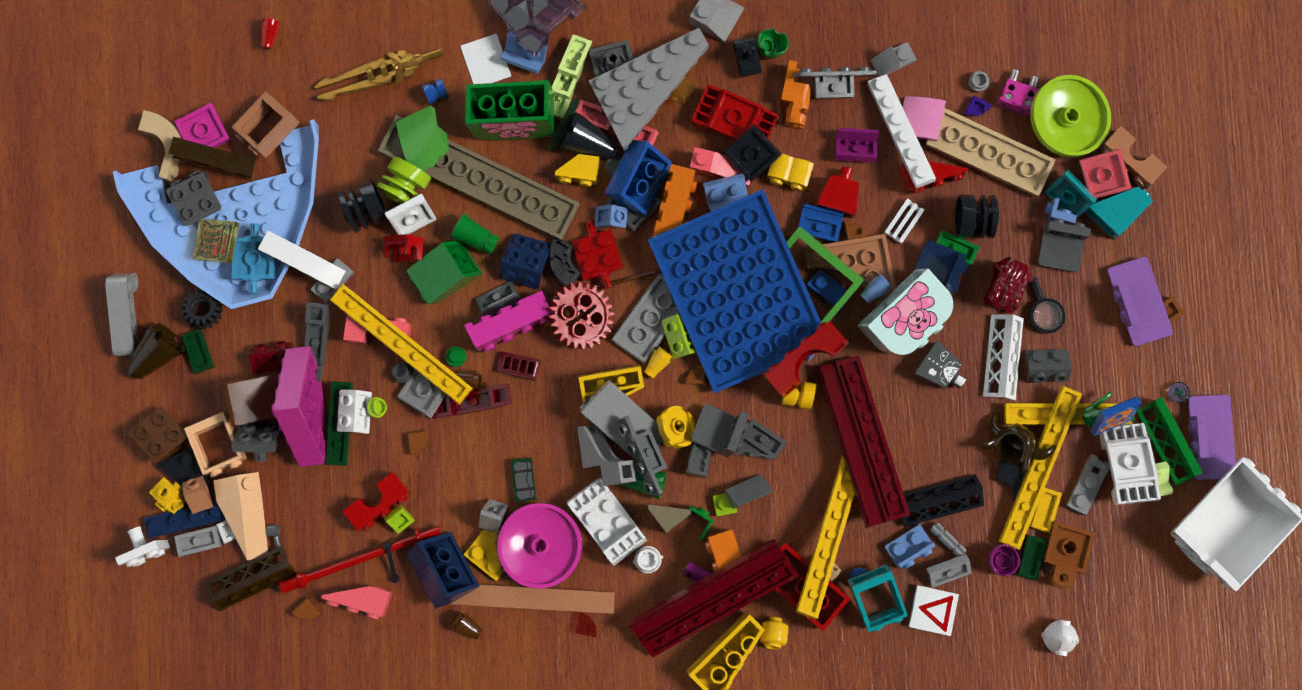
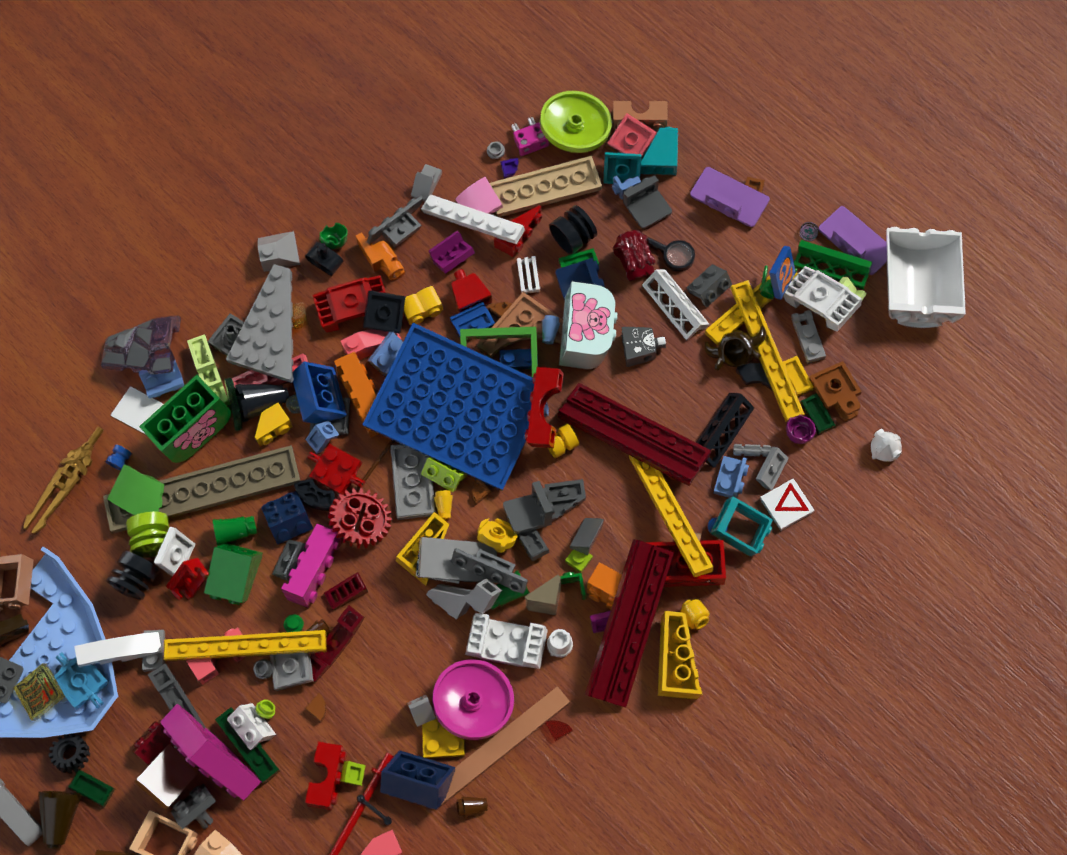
camera: 40 degrees left, 15 degrees down
(523, 479) = (420, 667): tile -> none

